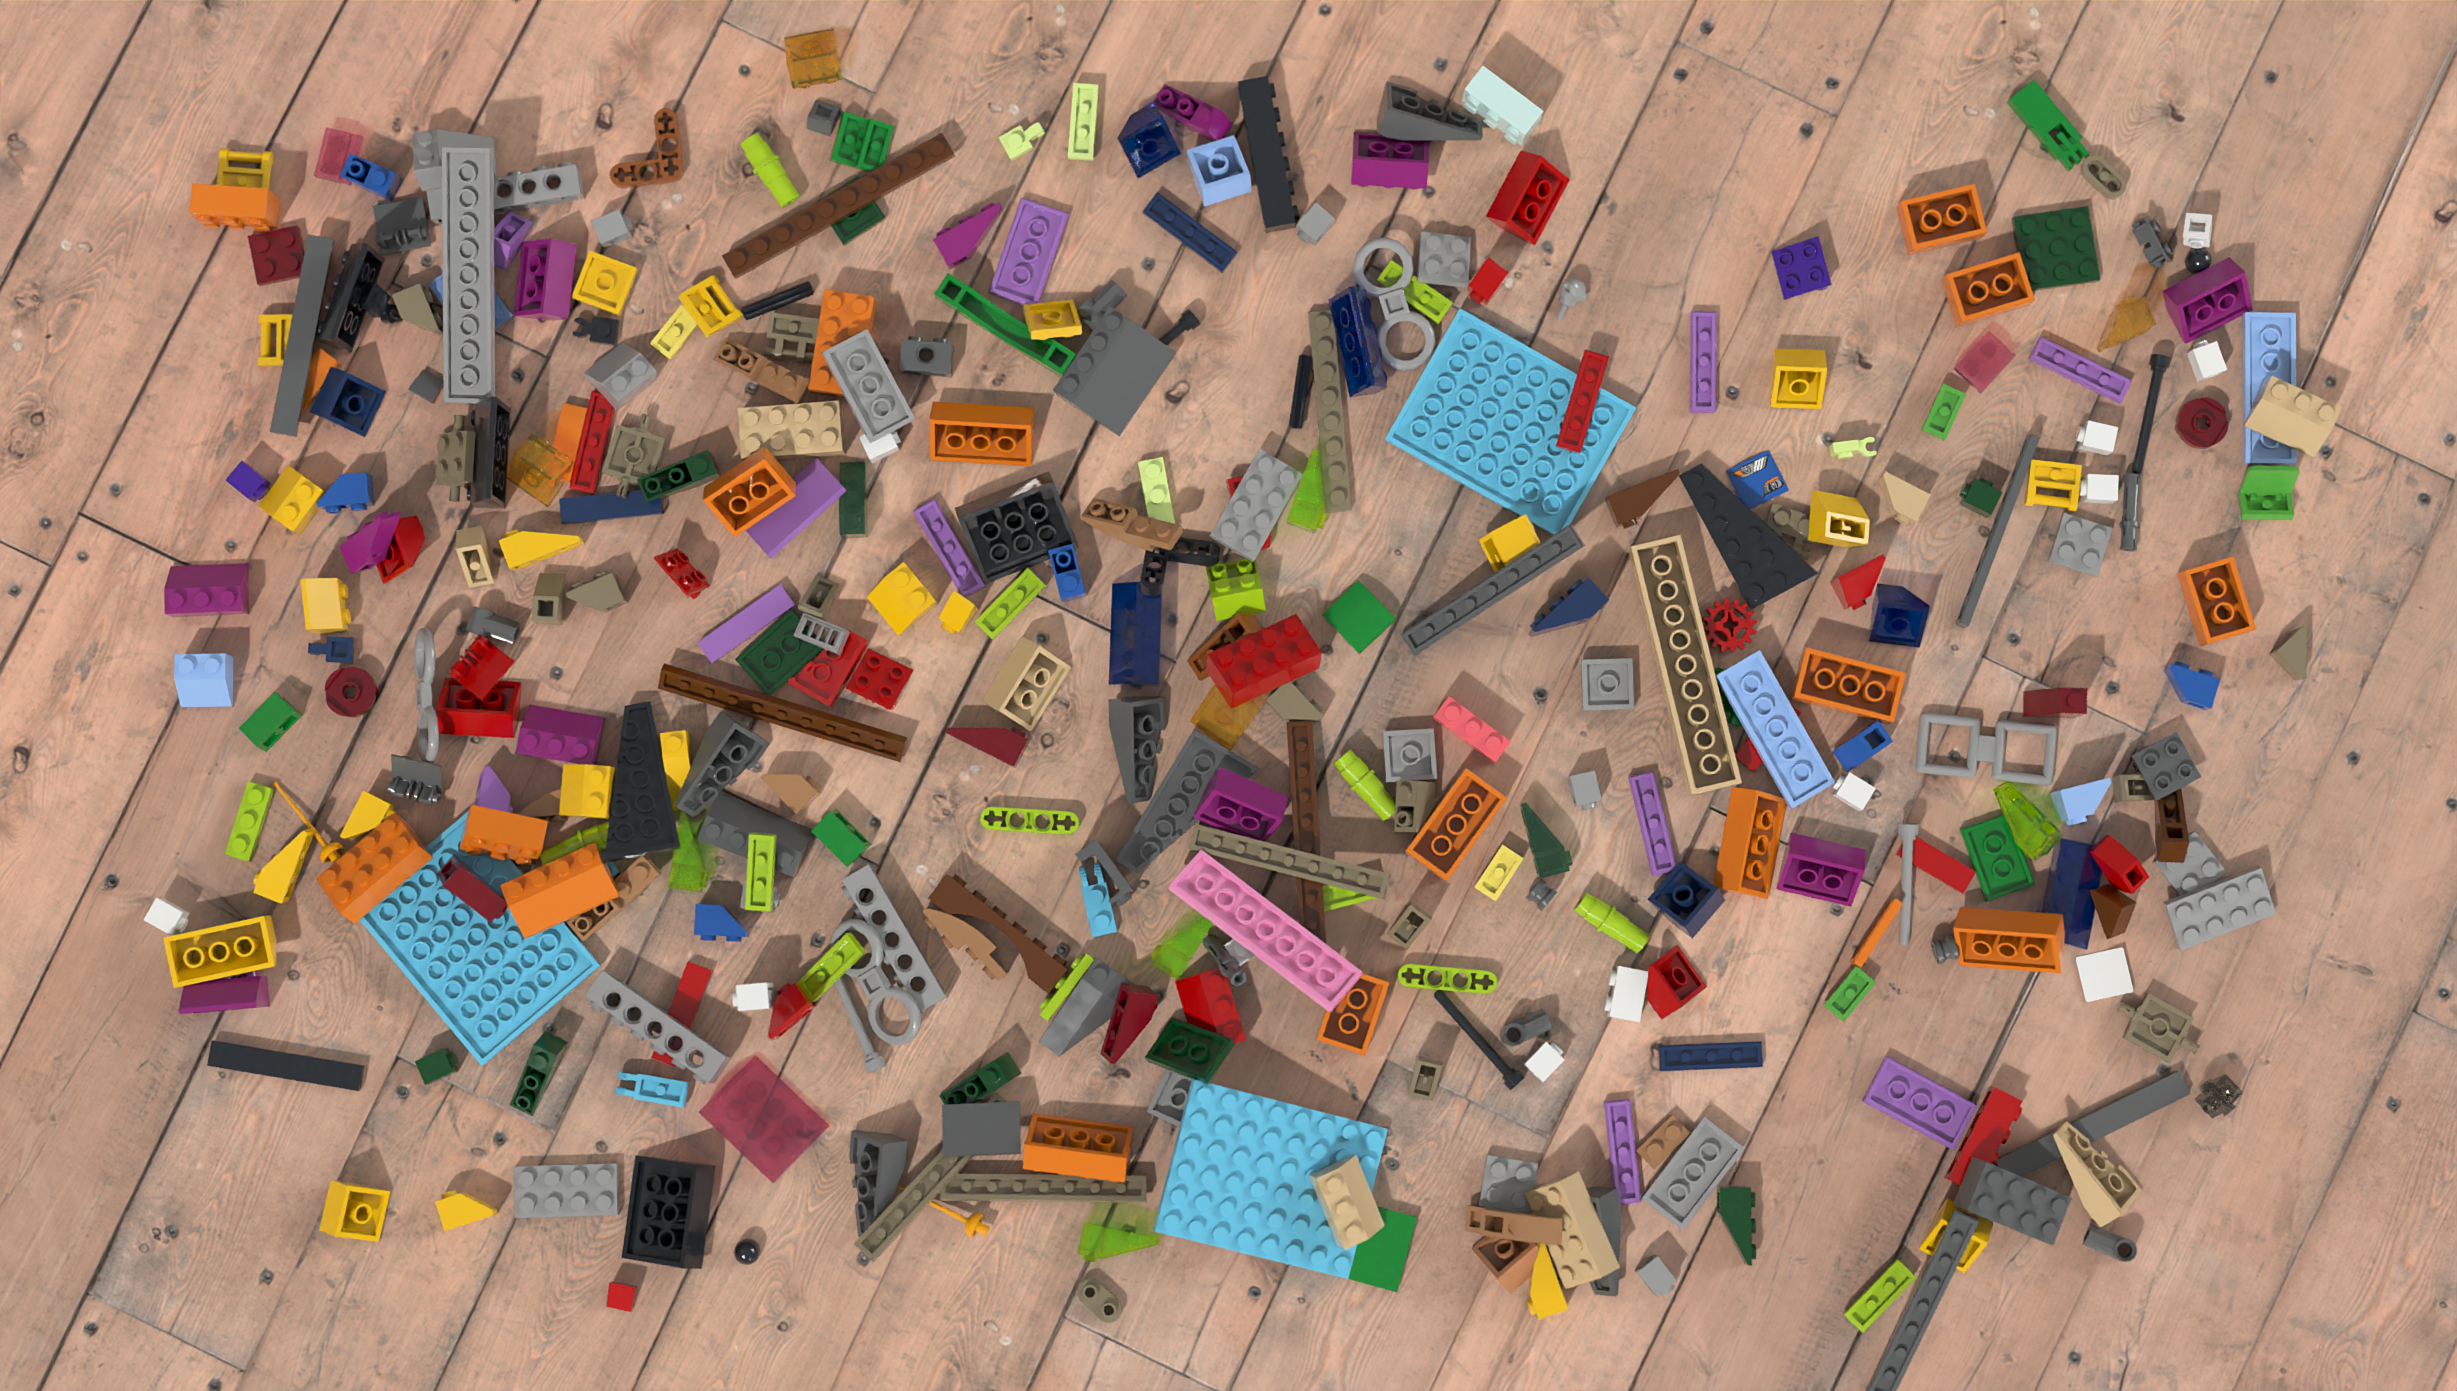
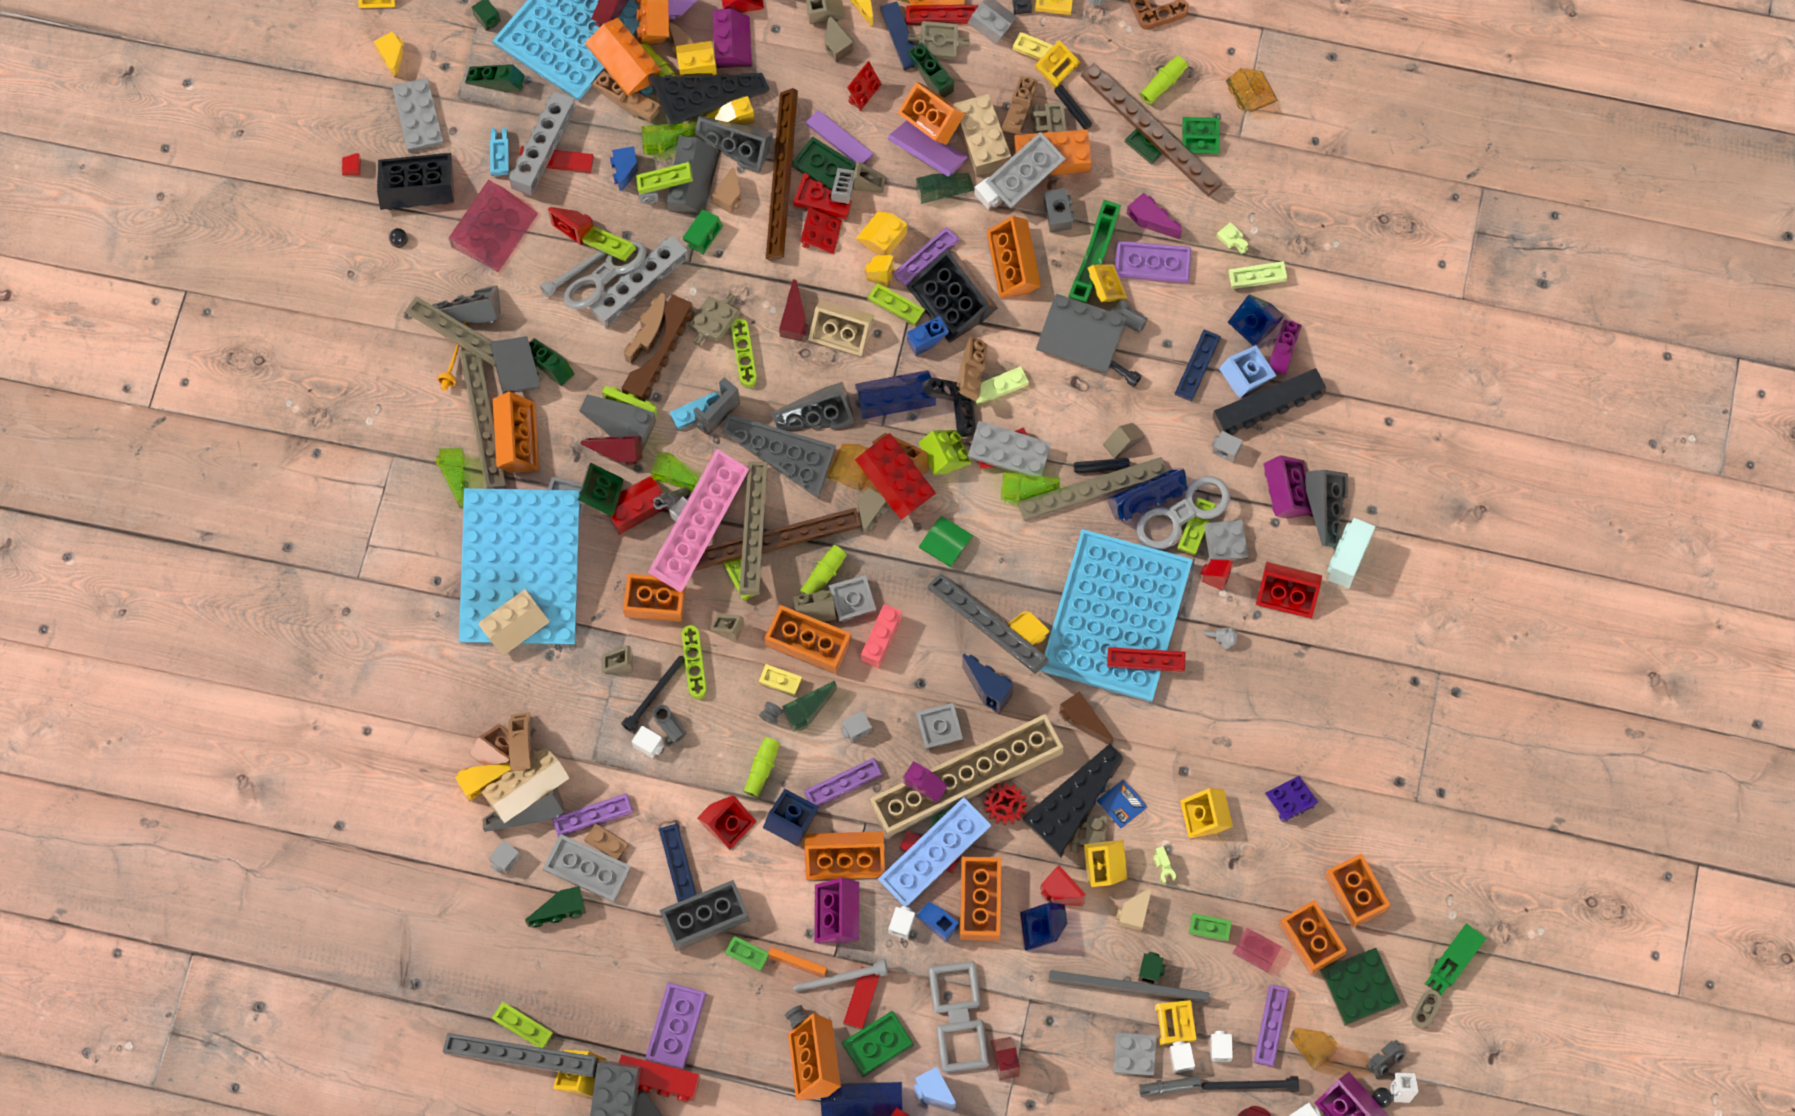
camera: 75 degrees right, 15 degrees down
(754, 996) = (577, 196): white brick -> none
(822, 117) = (1211, 107): dark grey slope -> none
(973, 849) = (714, 319): none -> dark tan plate
(1099, 1300) = (412, 476): dark tan plate -> none
(1241, 806) = (787, 487): magenta slope -> none
(1272, 354) = (1123, 439): none -> dark tan slope
(1383, 1256) = (484, 662): green tile -> none
(1506, 1182) = (553, 735): light grey plate -> none
(1626, 994) = (709, 789): white brick -> none
(1691, 720) = (924, 782): none -> magenta slope
(1703, 362) = (1200, 743): medium lavender tile -> none
(1792, 1037) = (704, 915): none -> dark grey brick
(2028, 825) = (908, 1056): clear neon green slope -> none

